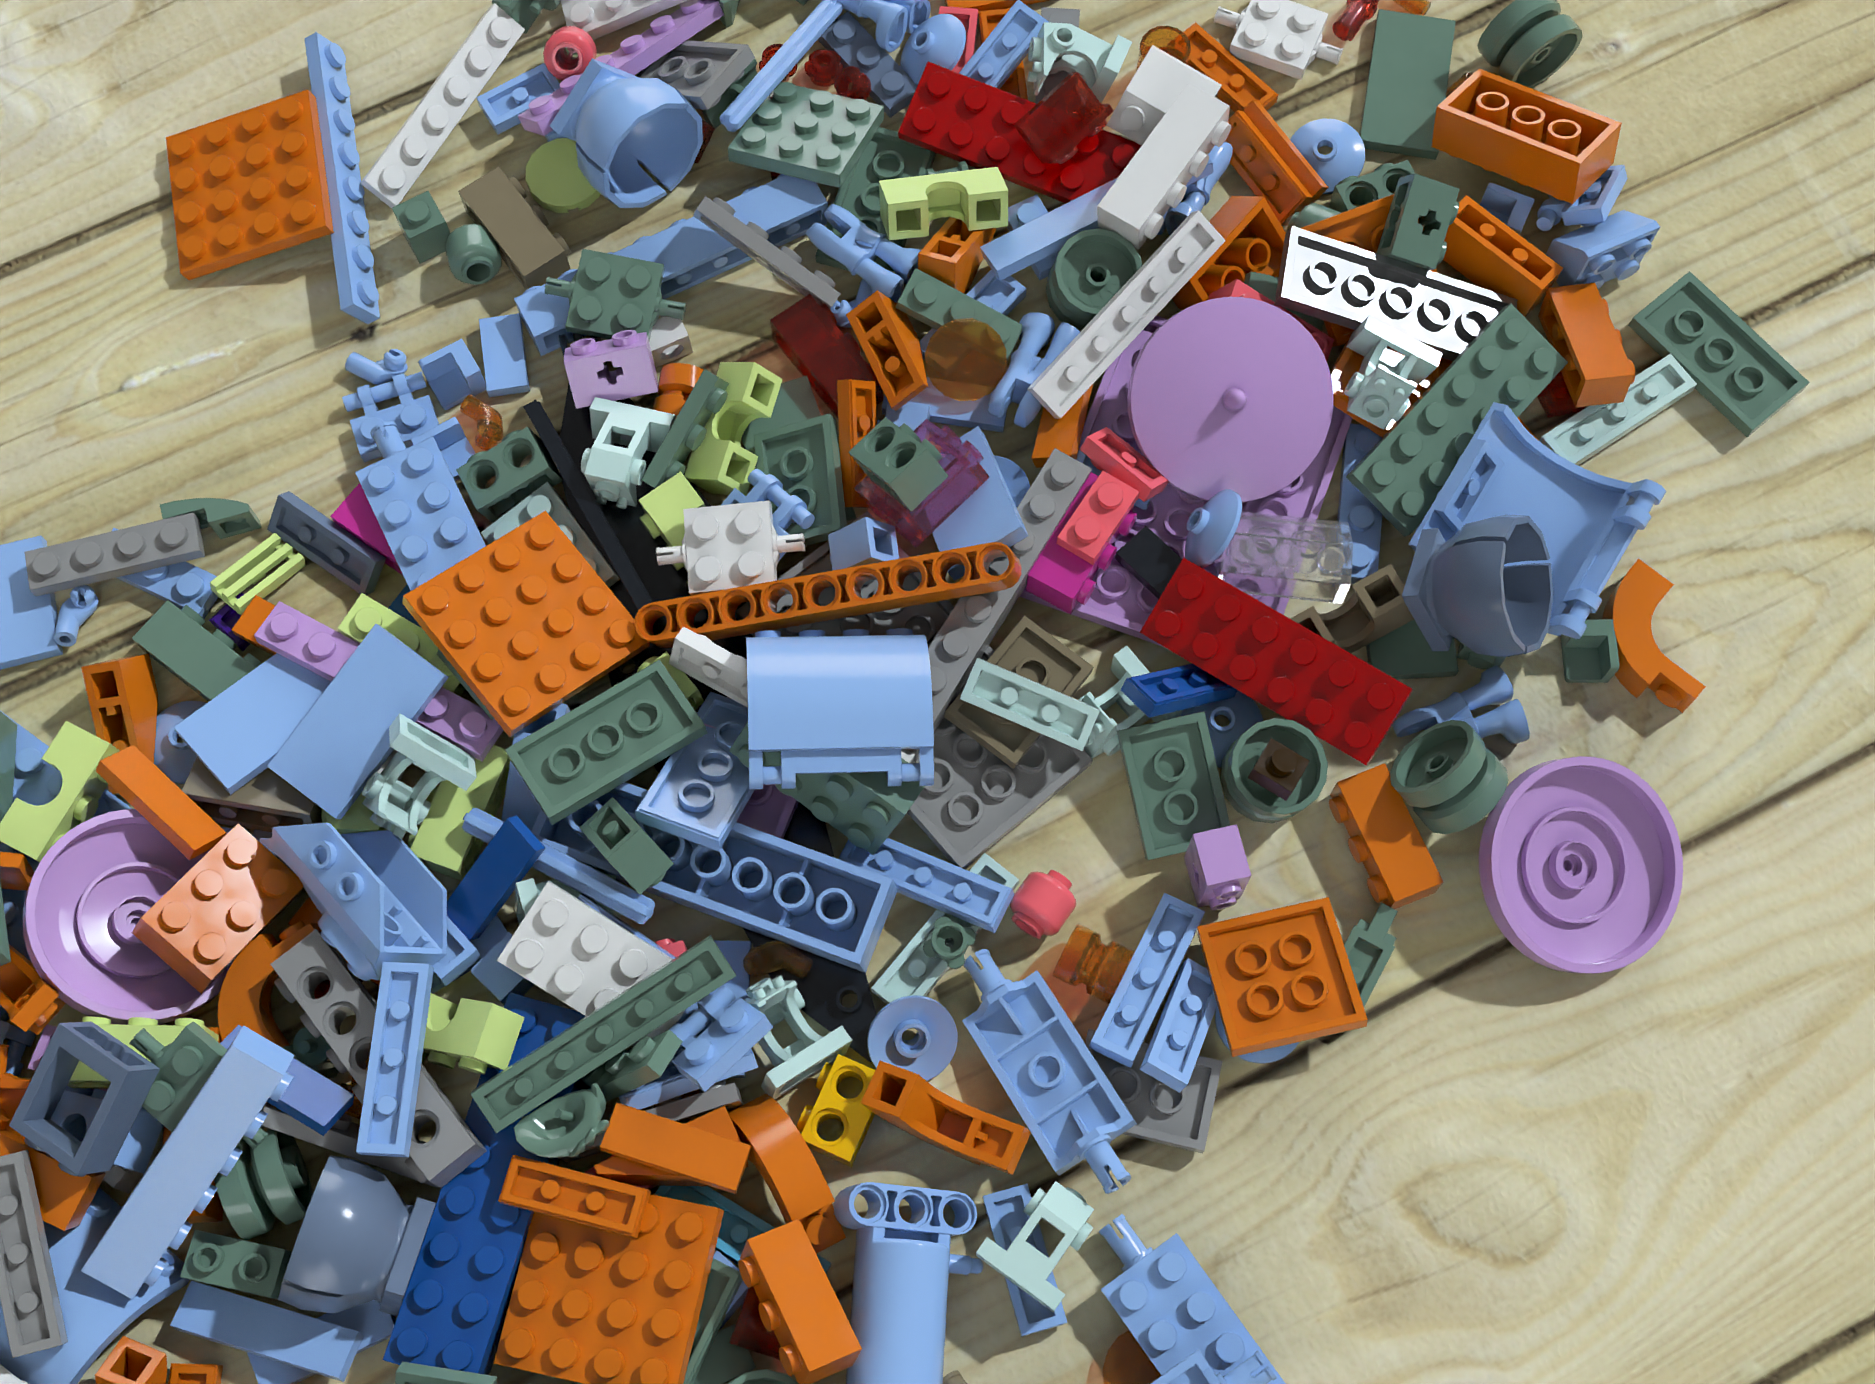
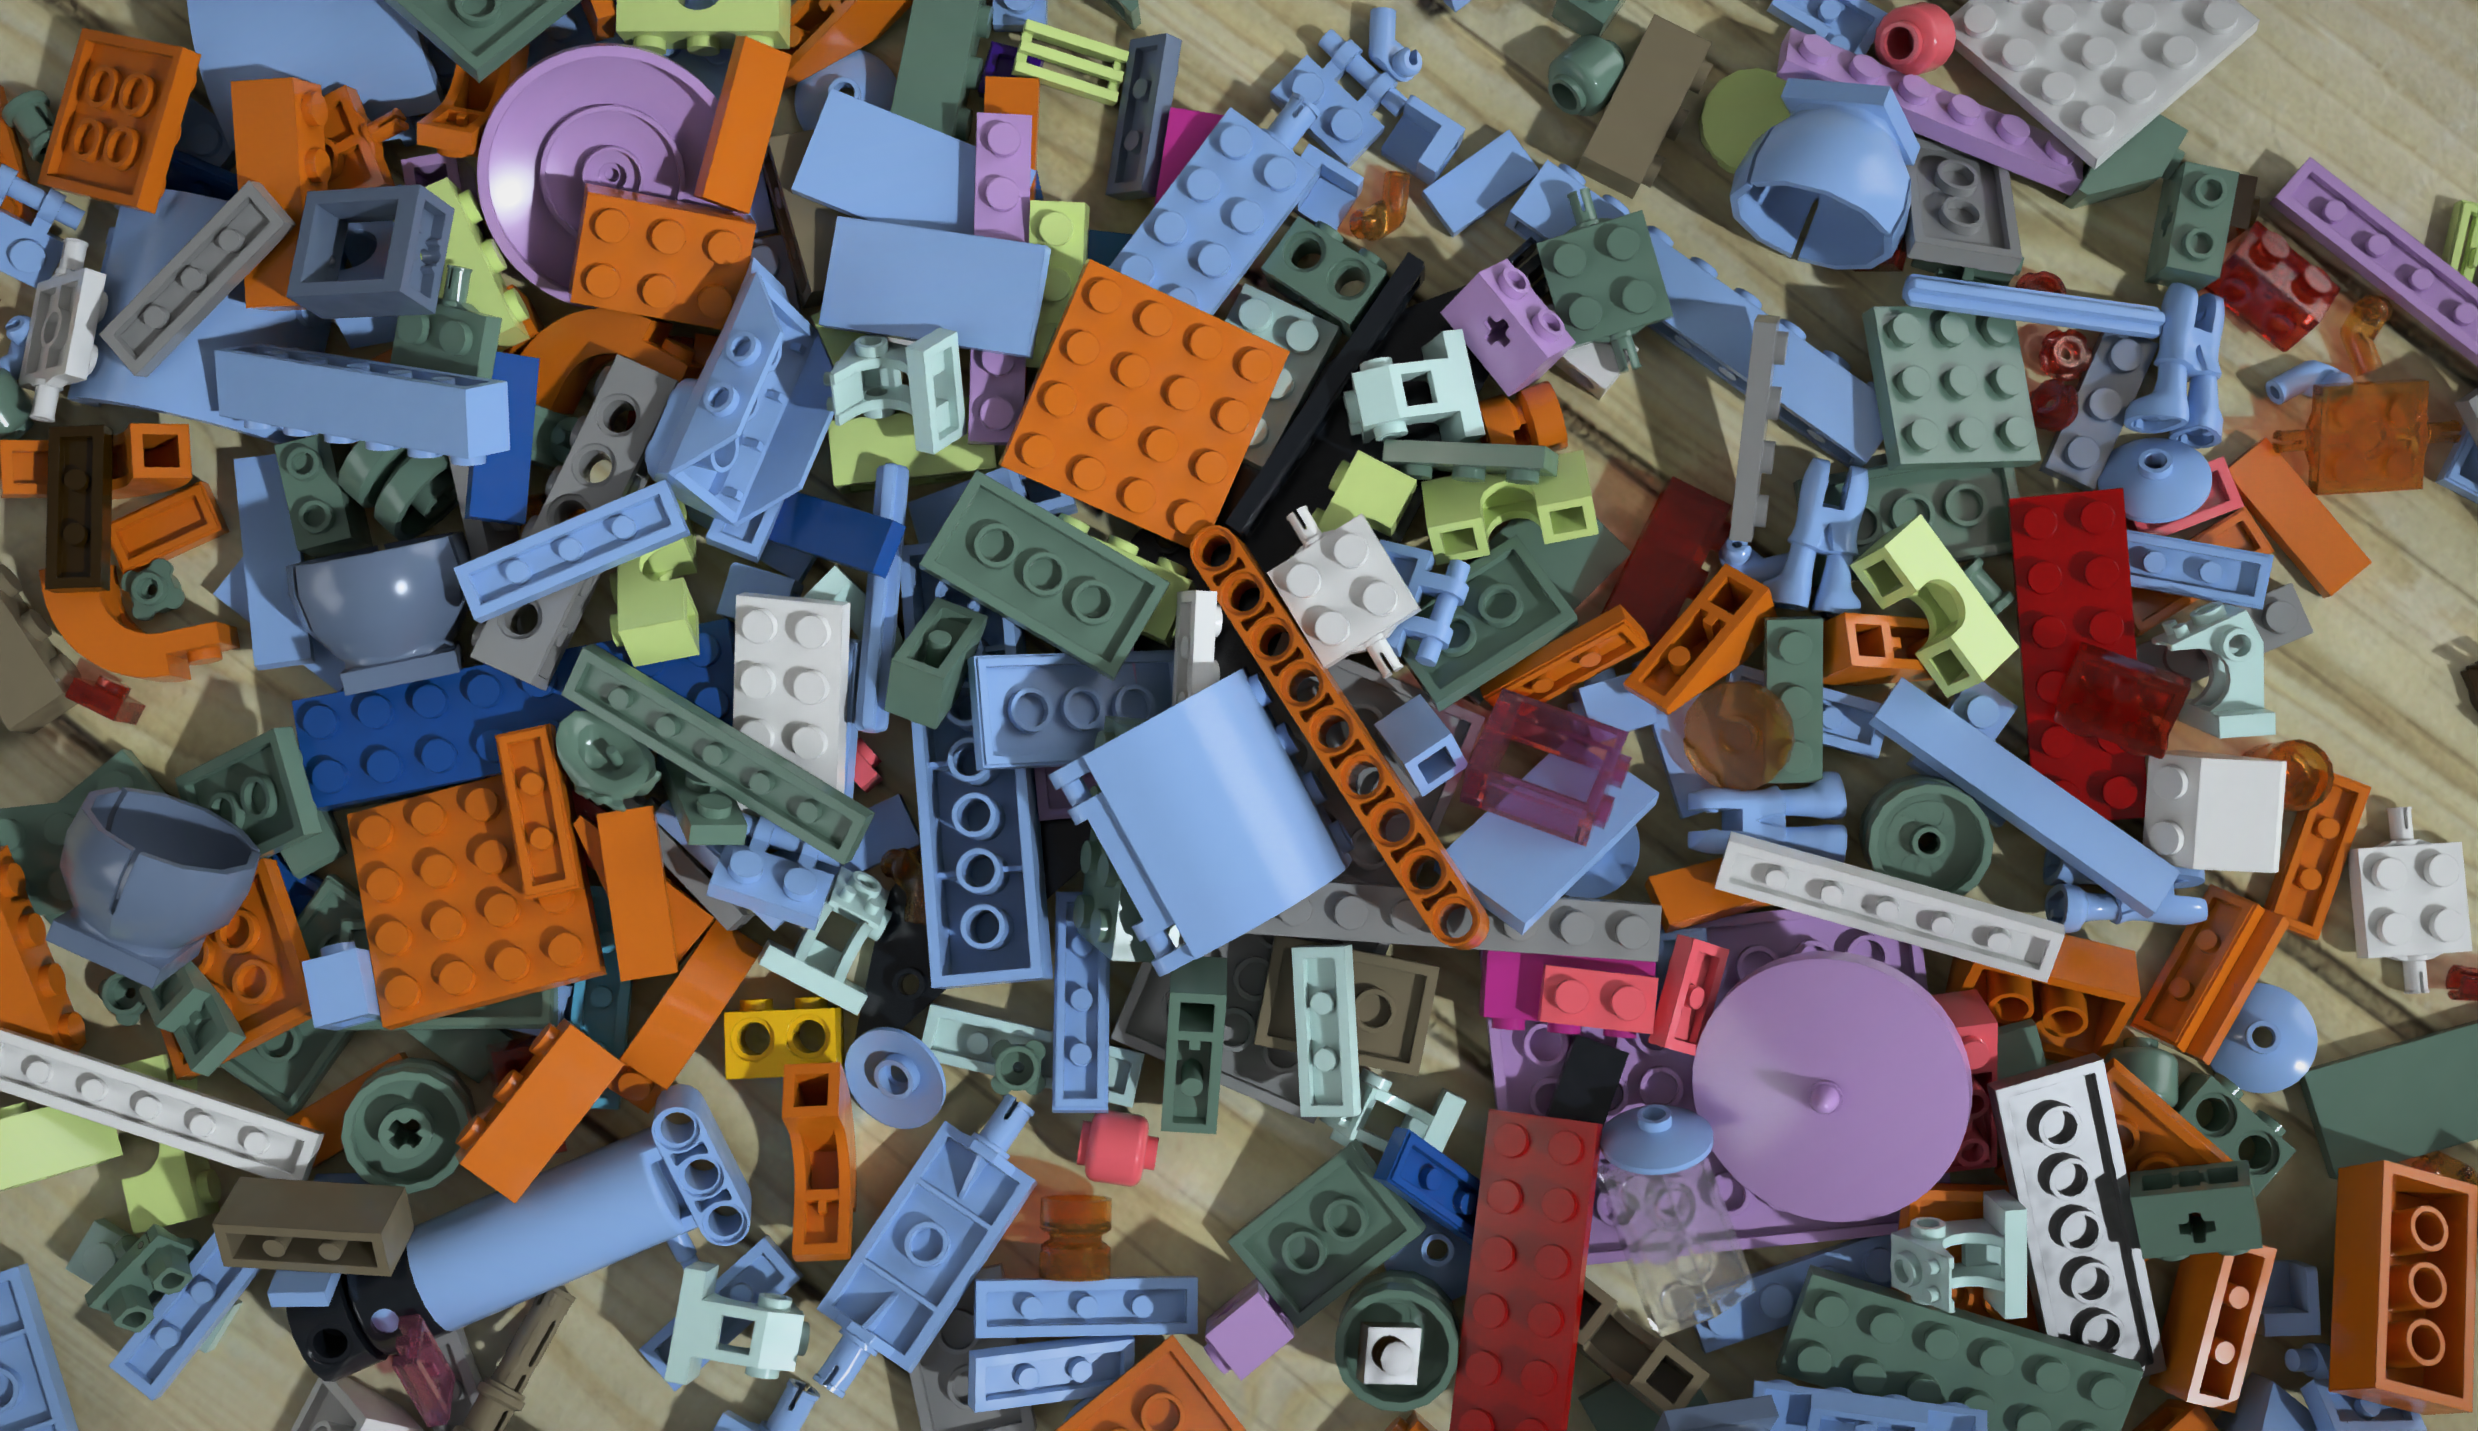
camera: 65 degrees right, 15 degrees up
(899, 462) = (1540, 736): sand green brick -> none
(994, 805) = (1194, 1046): none -> sand green slope
(1164, 166) = (2114, 860): white brick -> none

